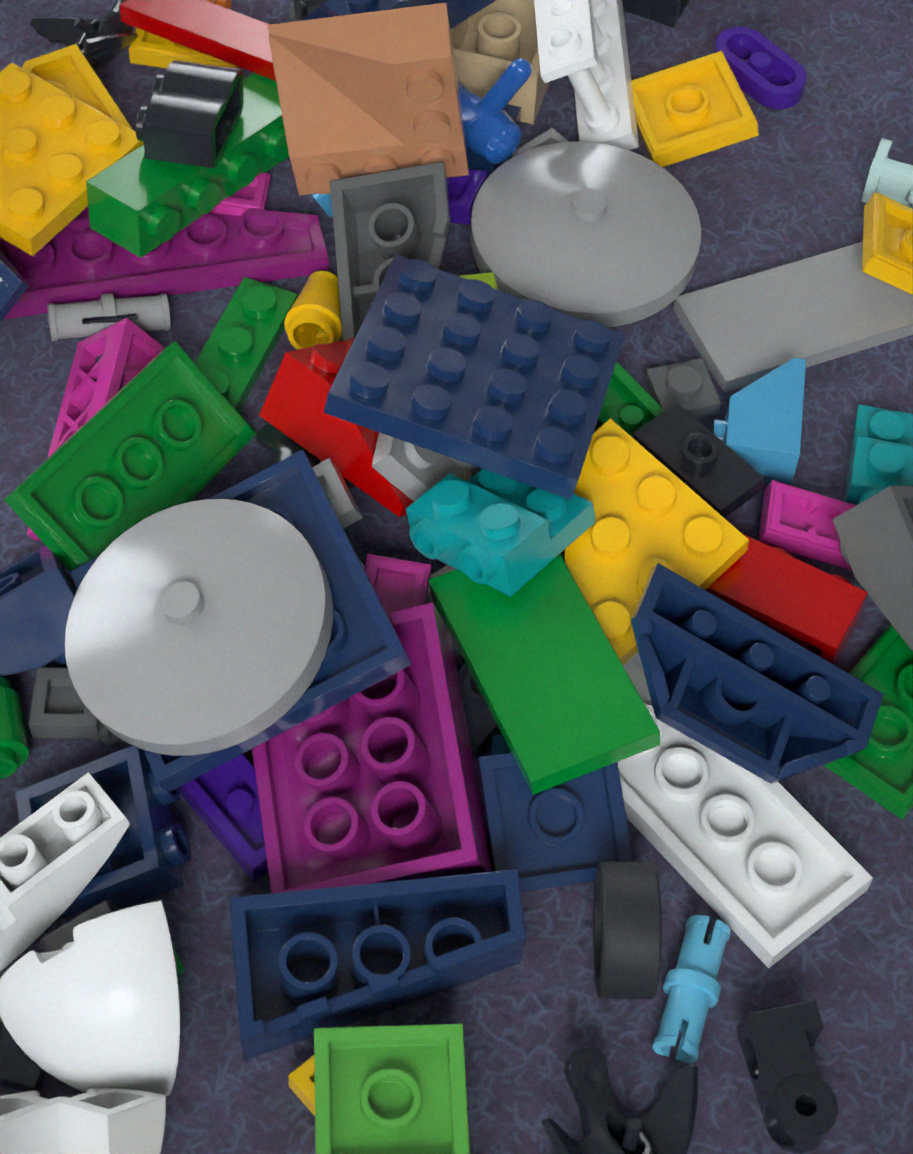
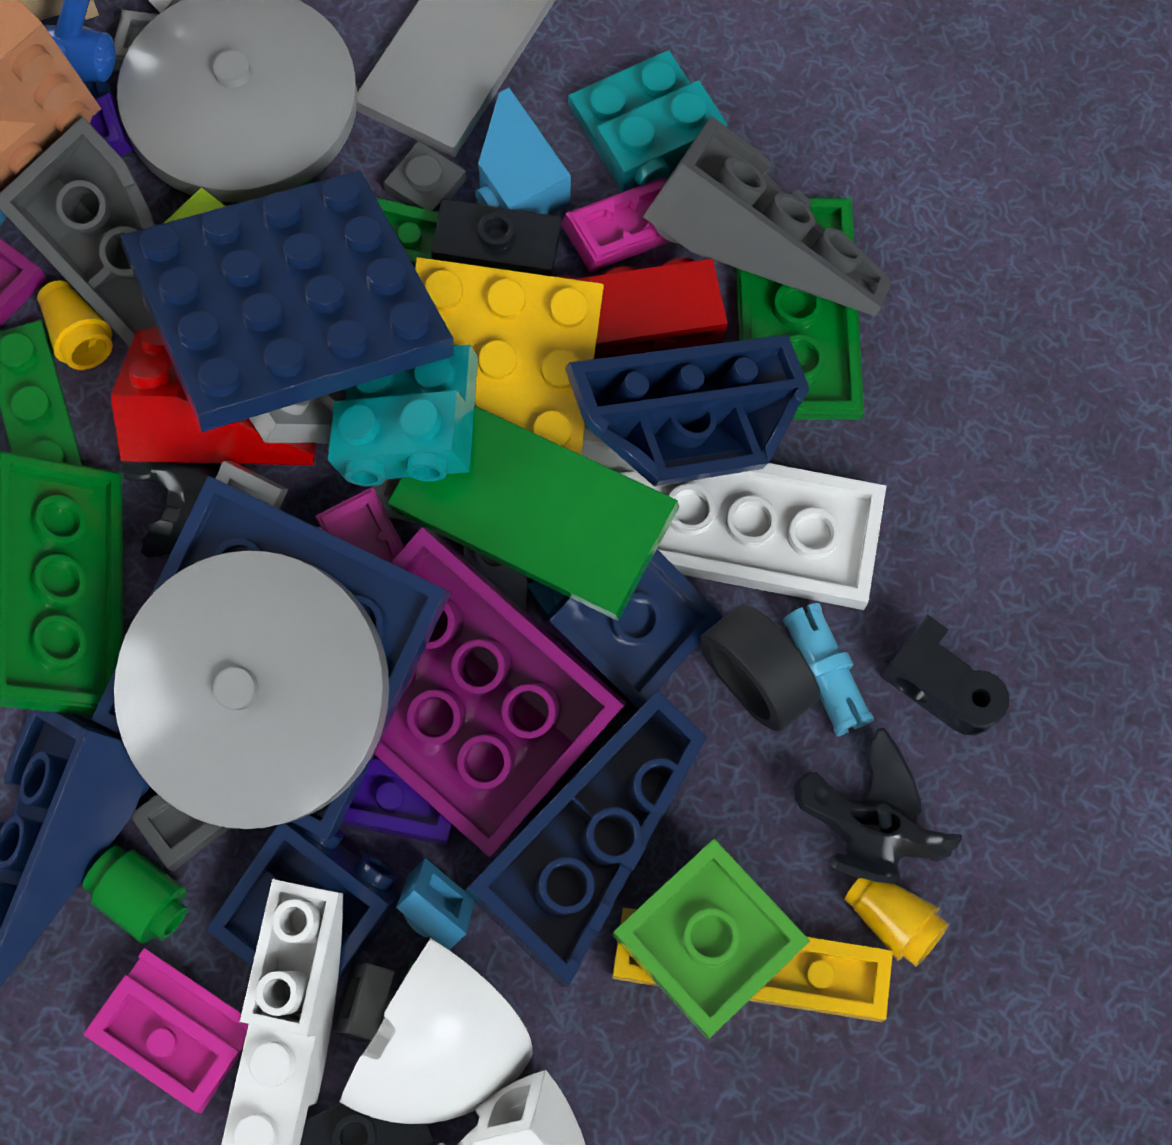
camera: 40 degrees left, 15 degrees up
(198, 906) = (435, 905): none -> dark azure plate

